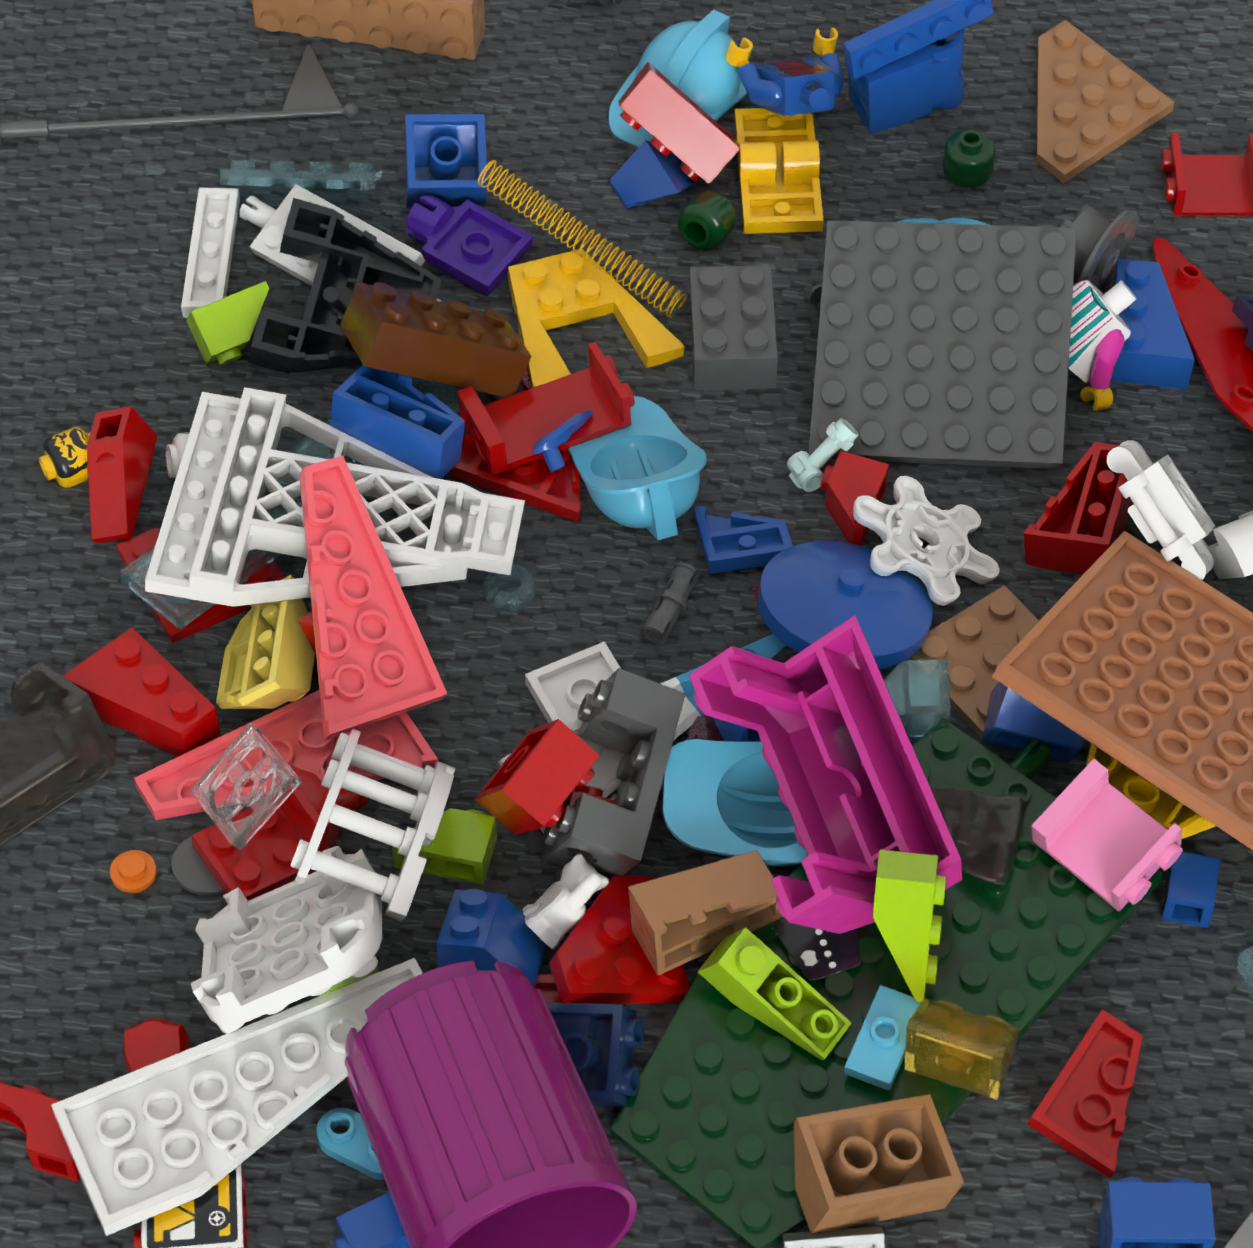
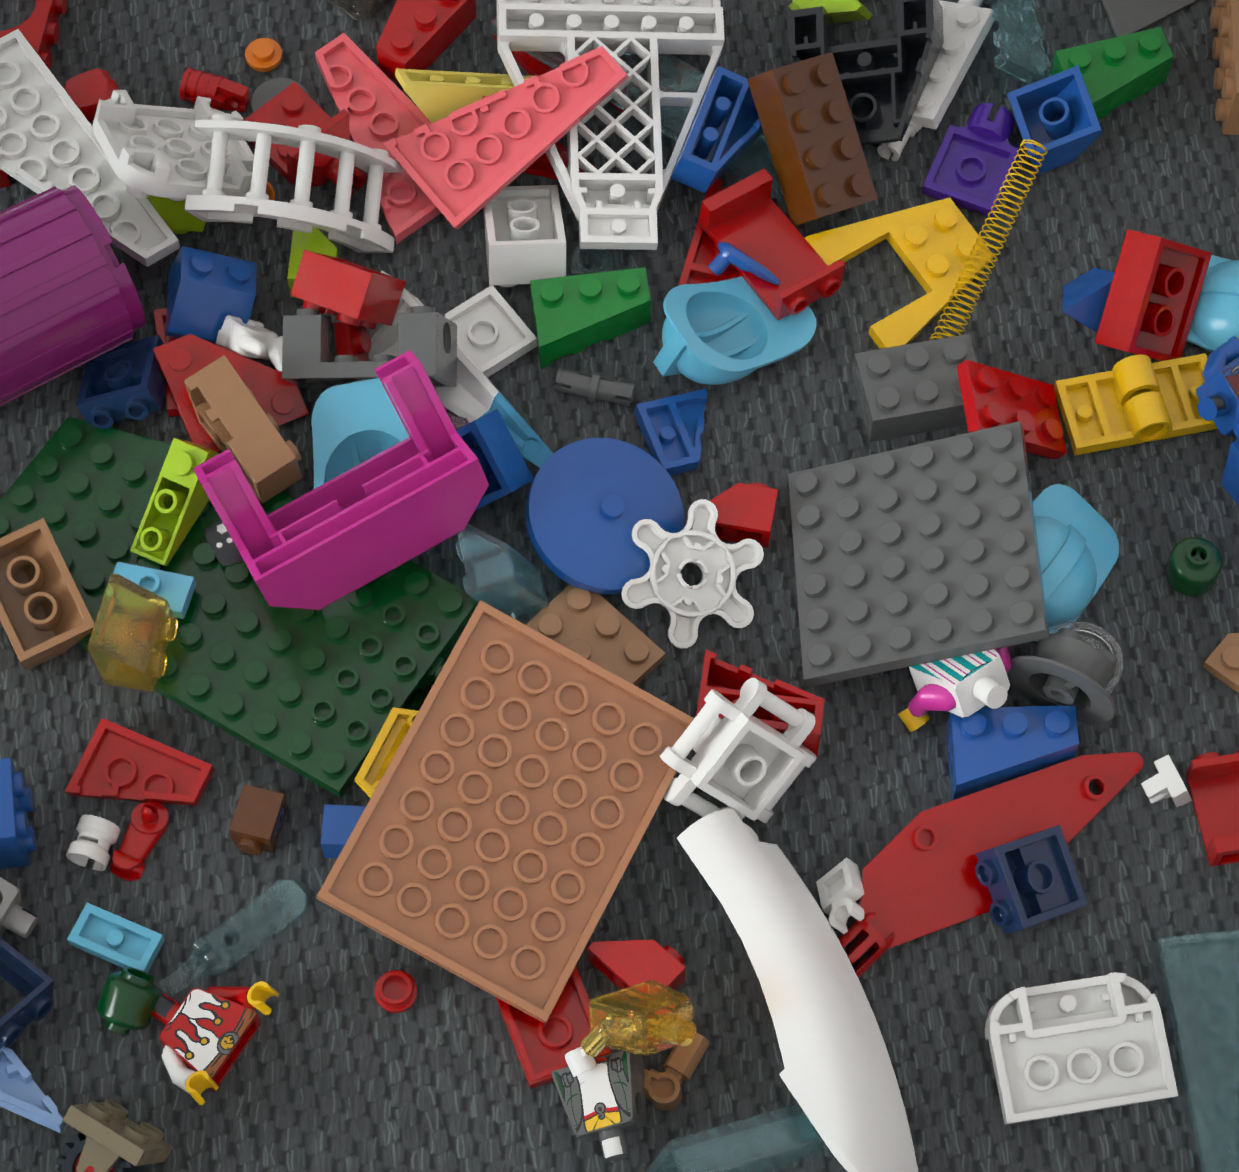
camera: 80 degrees right, 10 degrees up
(174, 927) = (223, 92): none -> red hinge
(230, 766) = (349, 93): clear piece -> none
(385, 101) = (1118, 67): none -> green wedge
(477, 633) = (524, 235): none -> white slope
(581, 593) = (586, 310): none -> green wedge
(706, 220) = (1052, 350): dark green head -> none
(781, 252) = (1002, 397): none -> red plate
(806, 468) = (774, 475): light aqua bar -> none
(904, 913) = (220, 564): lime slope -> none
(983, 831) = (353, 635): clear smoke brick -> none
(1106, 838) = (350, 730): bright pink panel -> none
(1161, 1095) = (144, 831): none -> red piece
(1170, 974) = (258, 820): none -> reddish brown brick
(1172, 1141) = (93, 841): none -> white wheel
(1190, 220) = (1166, 784): none -> white tile

